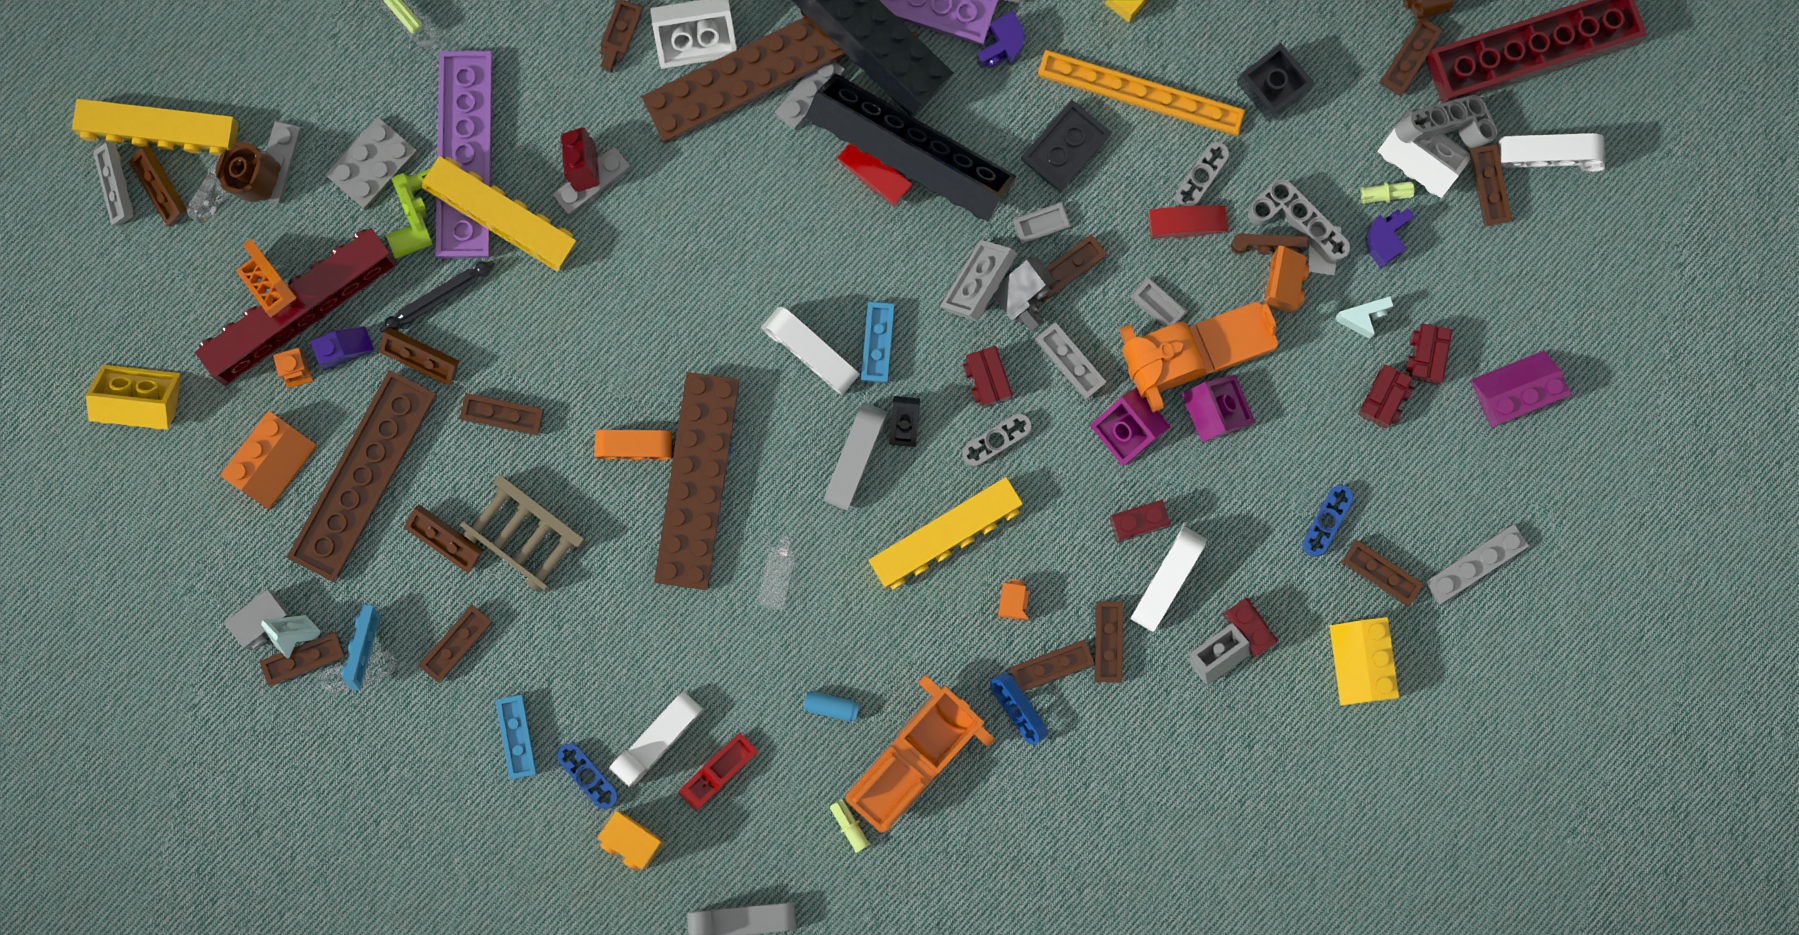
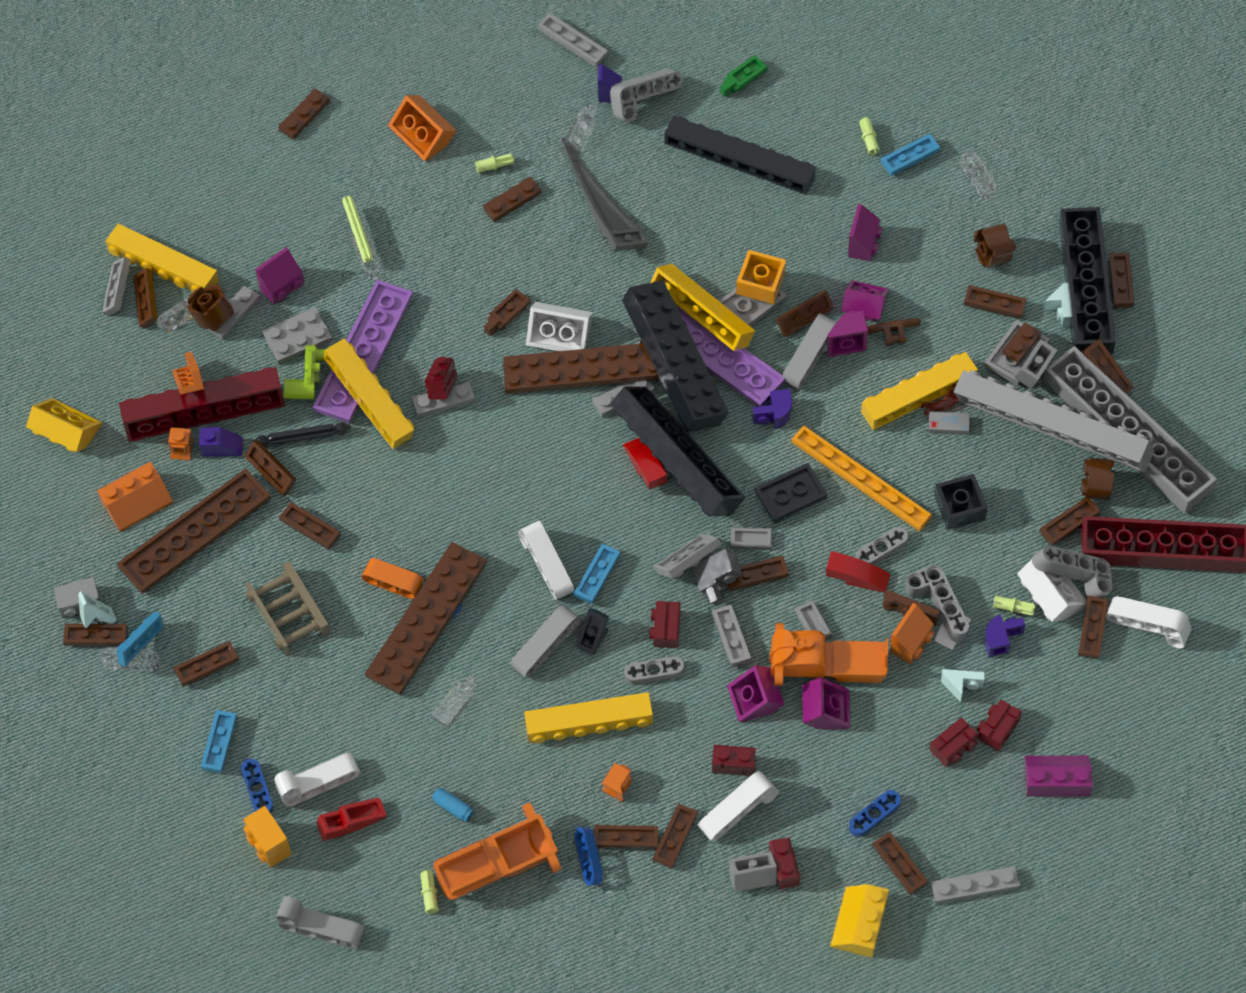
camera: 25 degrees right, 20 degrees down
(316, 95) = (279, 276): none -> magenta slope
(443, 538) = (230, 591): reddish brown plate -> none

